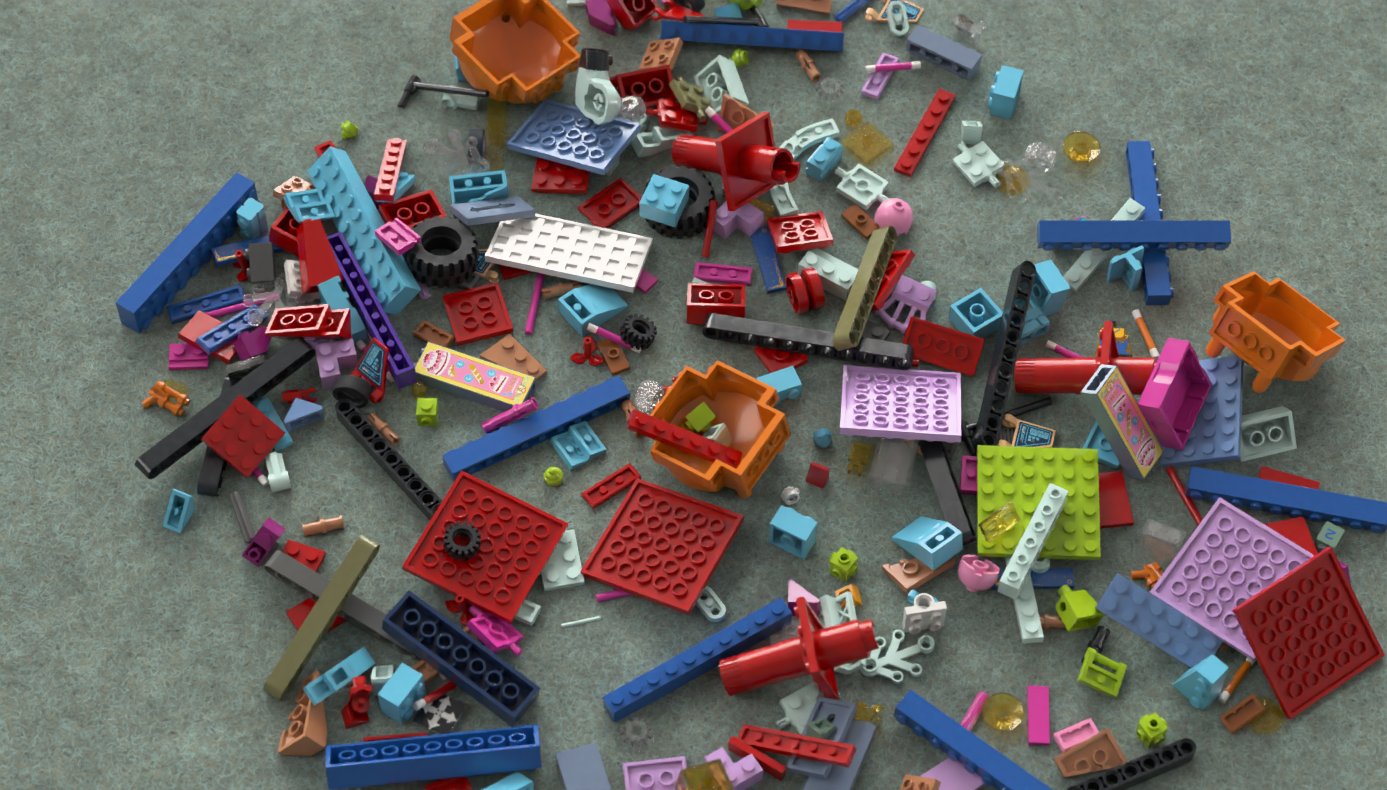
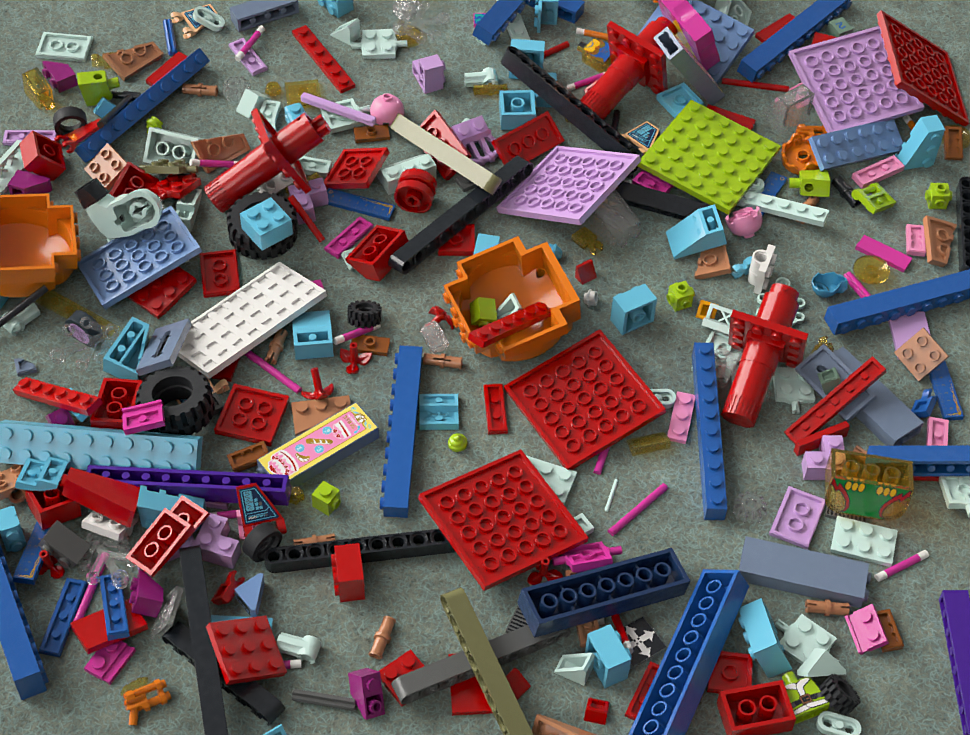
camera: 60 degrees left, 5 degrees down
(339, 676) = (561, 695): medium azure slope -> none
(340, 643) = (517, 683): none -> red slope
(359, 694) = (584, 690): red hips -> none
(361, 466) = (348, 572): none -> red brick
(416, 133) = (24, 367): none -> sand blue tile
(465, 530) = (498, 519): black tyre -> none
(517, 412) = (382, 431): dark pink pin -> none
(531, 346) = (319, 392): none -> red plant
(578, 649) = (638, 509): none -> dark pink bar
(656, 622) = (648, 443): none -> clear yellow slope
(689, 637) = (681, 417): none -> bright pink plate
(796, 591) = (701, 334): slope -> none
(824, 110) = (250, 100): none -> light aqua slope
(860, 178) = (338, 109): none -> lavender axle
(949, 677) = (831, 280): none -> dark azure hair
(966, 222) = (429, 73): none -> lavender brick
(991, 282) = (490, 89): none -> clear yellow pin
(997, 266) = (487, 76): none -> light aqua piece
(999, 522) = (719, 180): clear yellow plate -> none
(1033, 541) = (750, 169): light aqua brick -> none
(1088, 305) = (555, 49): none -> red bar
(1102, 575) = (793, 149): none -> orange plate
(1147, 662) = (878, 171): none -> bright pink plate

